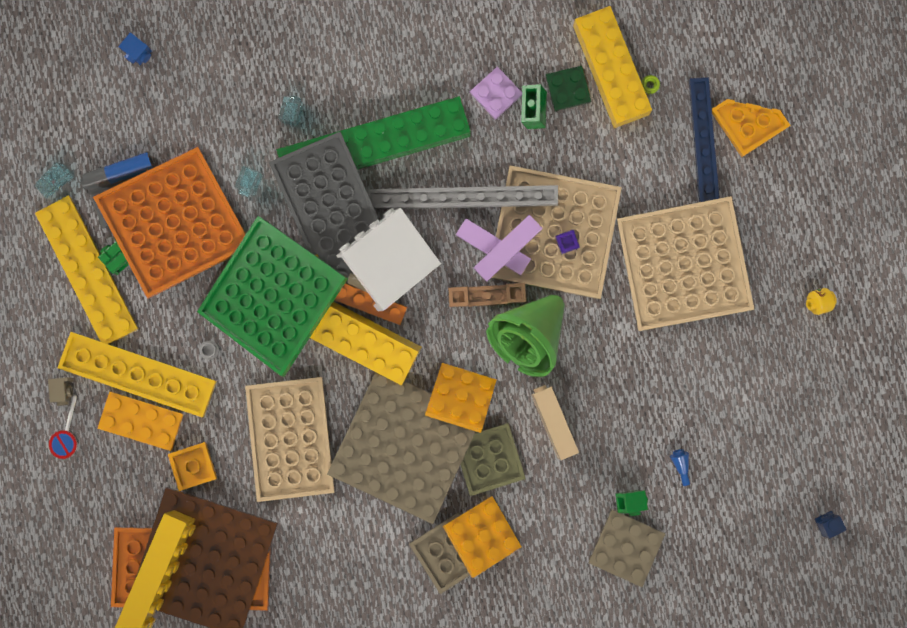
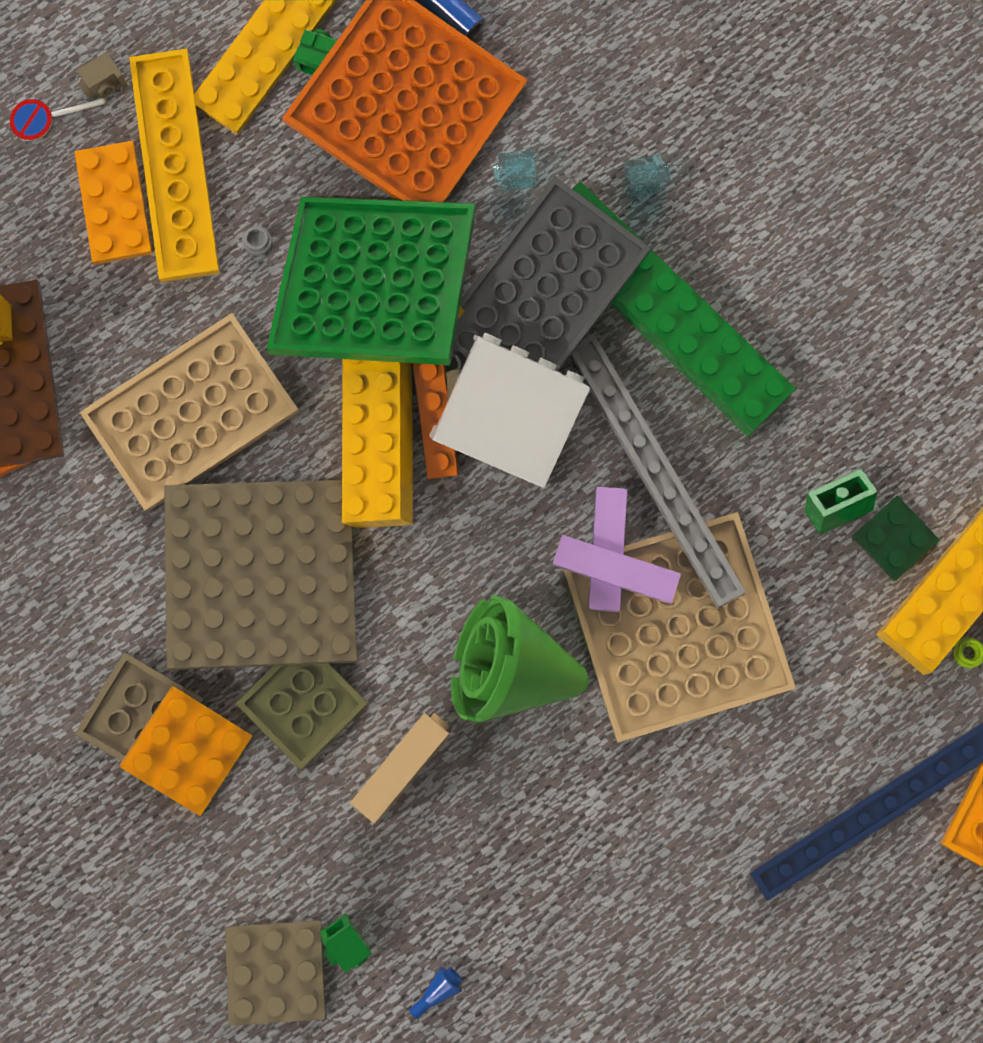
camera: 60 degrees right, 5 degrees down
(192, 466) = (85, 301): light orange plate -> none
(461, 397) = (368, 616): light orange plate -> none
(487, 295) = (534, 577): medium nougat slope -> none
(496, 93) = (830, 440): lavender plate -> none
(567, 242) = (673, 651): dark purple tile -> none
(685, 264) = (735, 841): tan plate -> none

